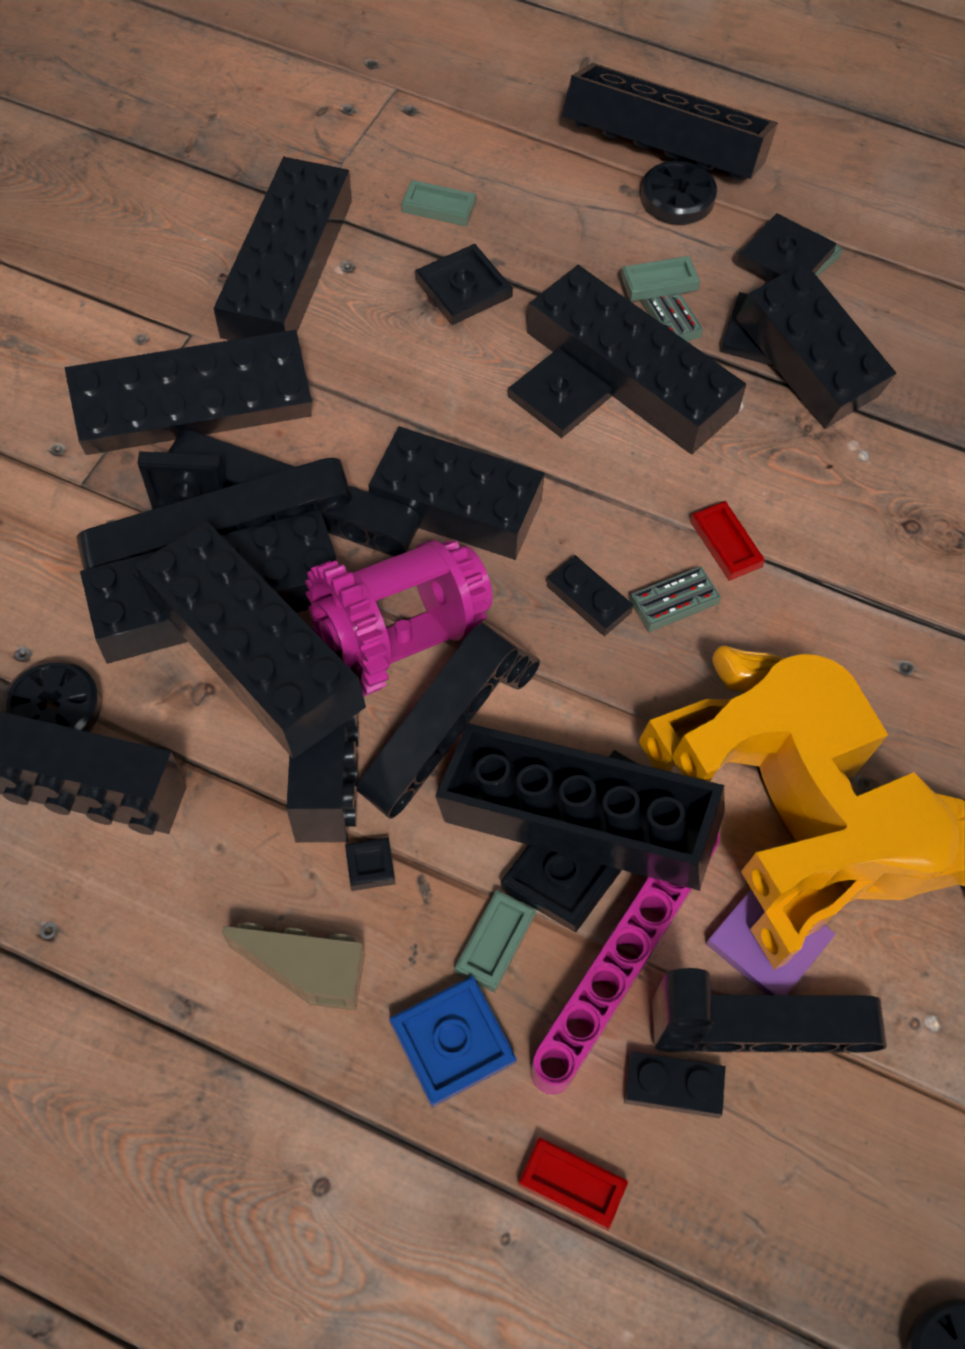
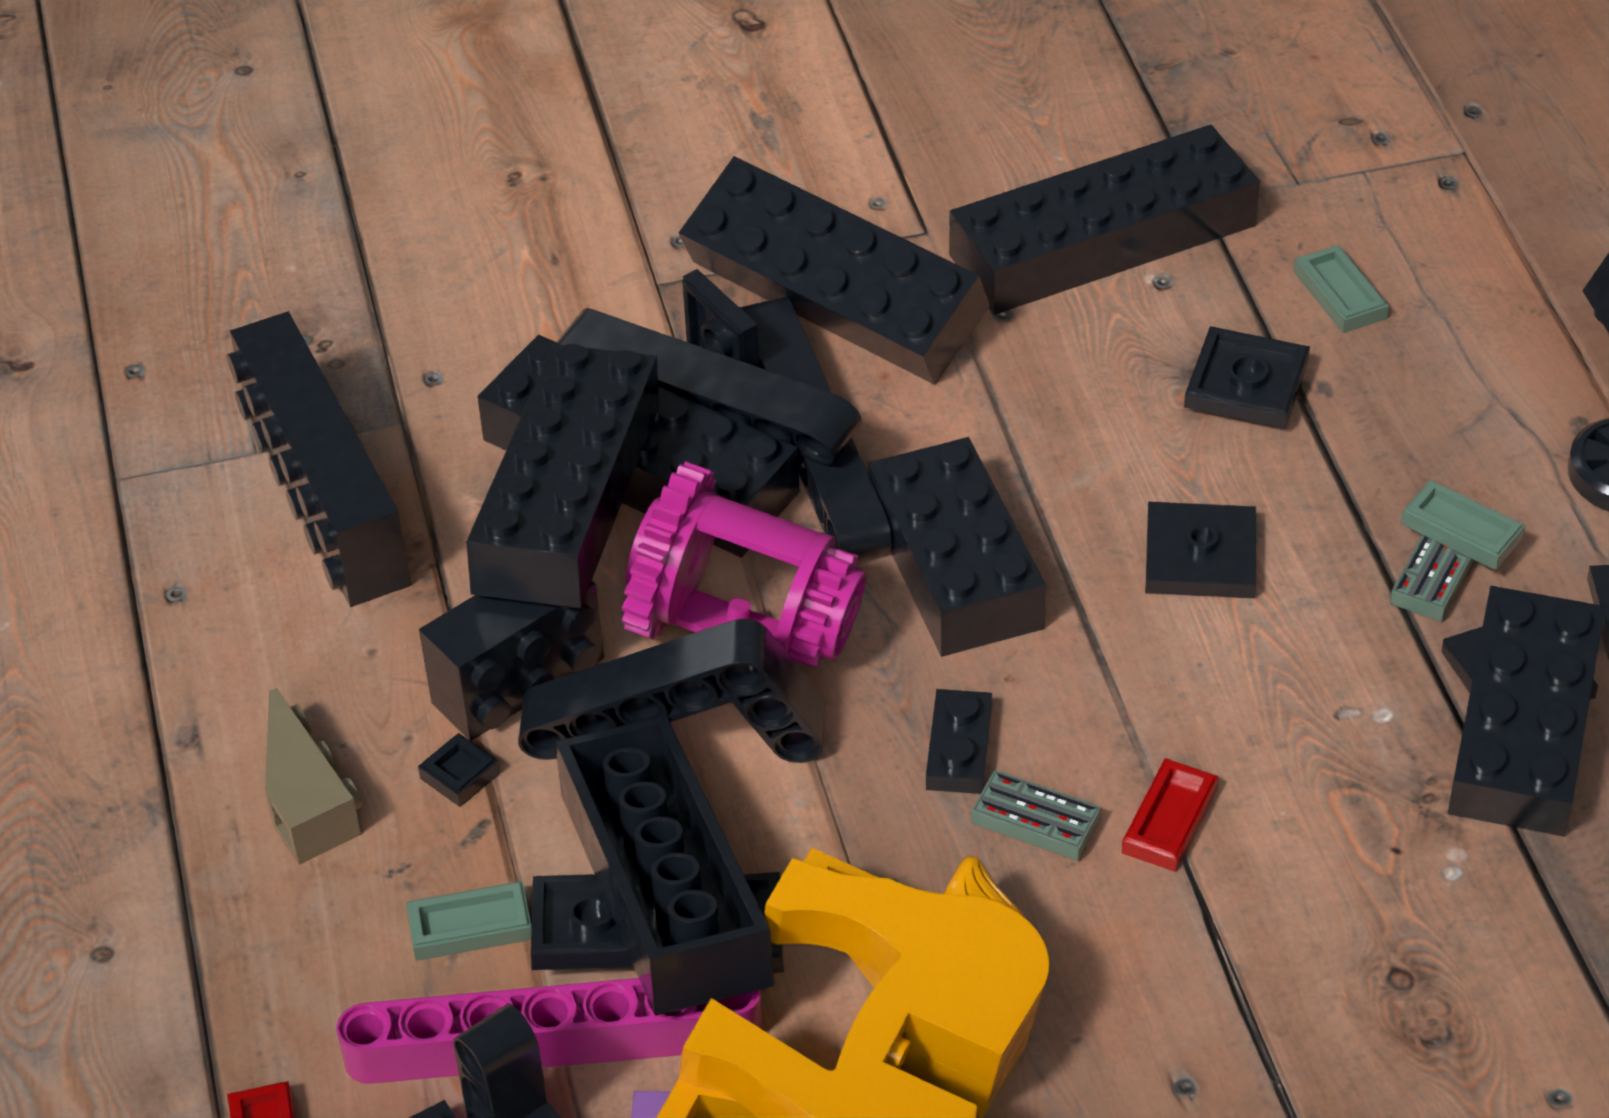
camera: 55 degrees right, 15 degrees down
(60, 683) = (422, 422): black wheel -> none
(452, 1041) = (327, 948): blue plate -> none
(638, 357) = (1316, 577): black brick -> none

